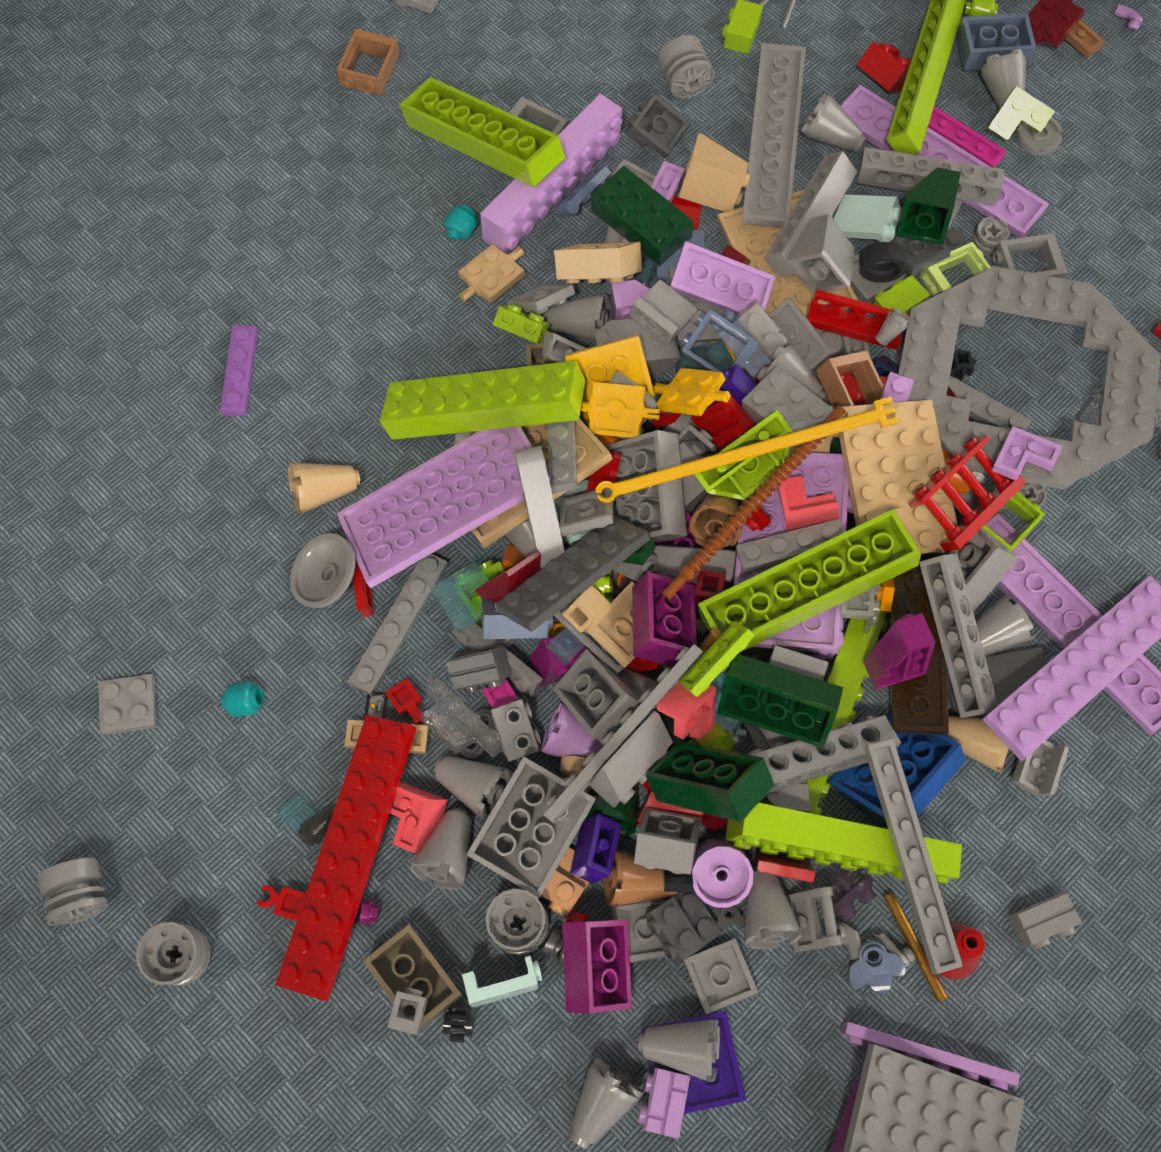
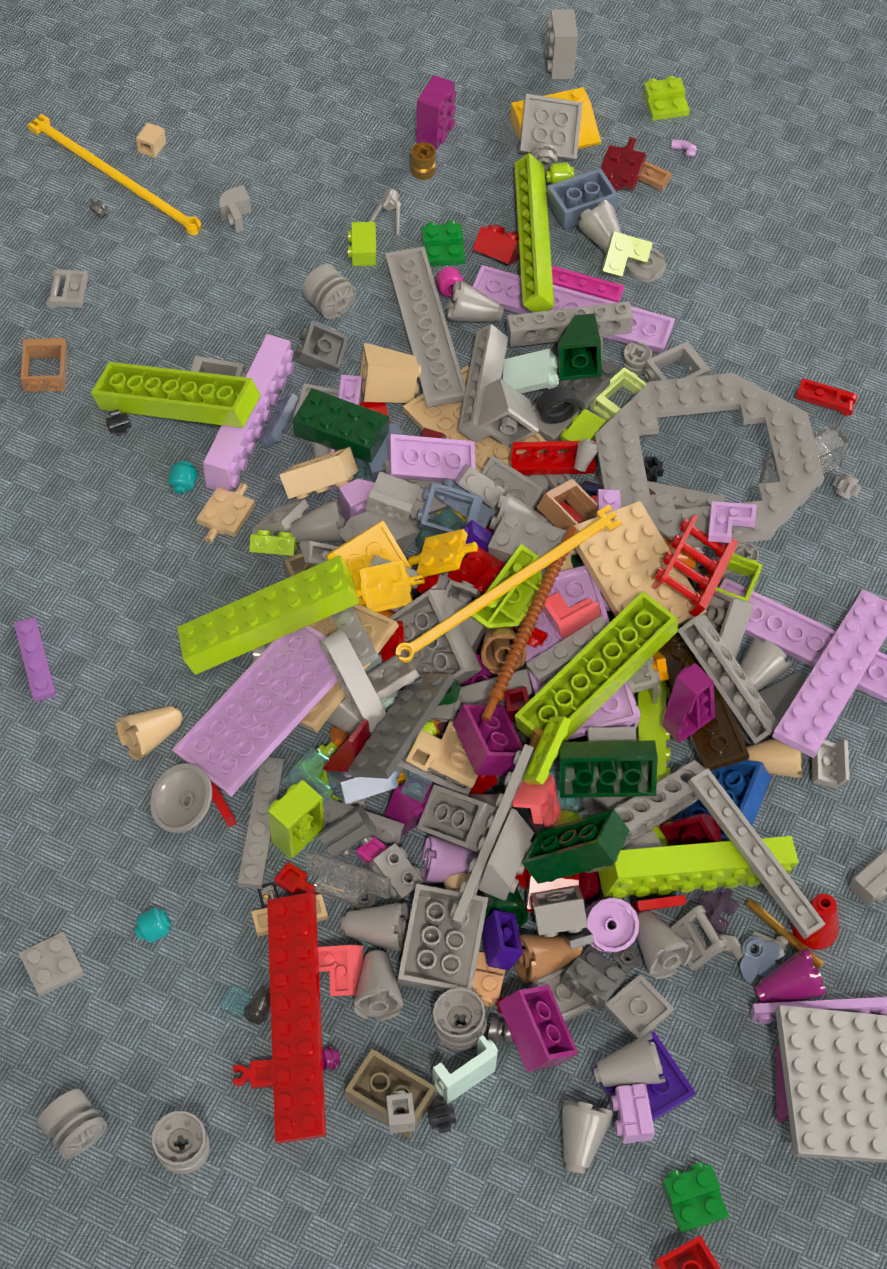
camera: 20 degrees left, 10 degrees down
(417, 144) = (117, 422): none -> black gear
(428, 635) = (296, 819): none -> lime brick
(814, 90) = (445, 280): none -> dark pink head
(828, 50) = (443, 243): none -> green plate
(851, 802) = (692, 830): none -> dark red slope
(901, 1009) = (792, 981): none -> magenta cone

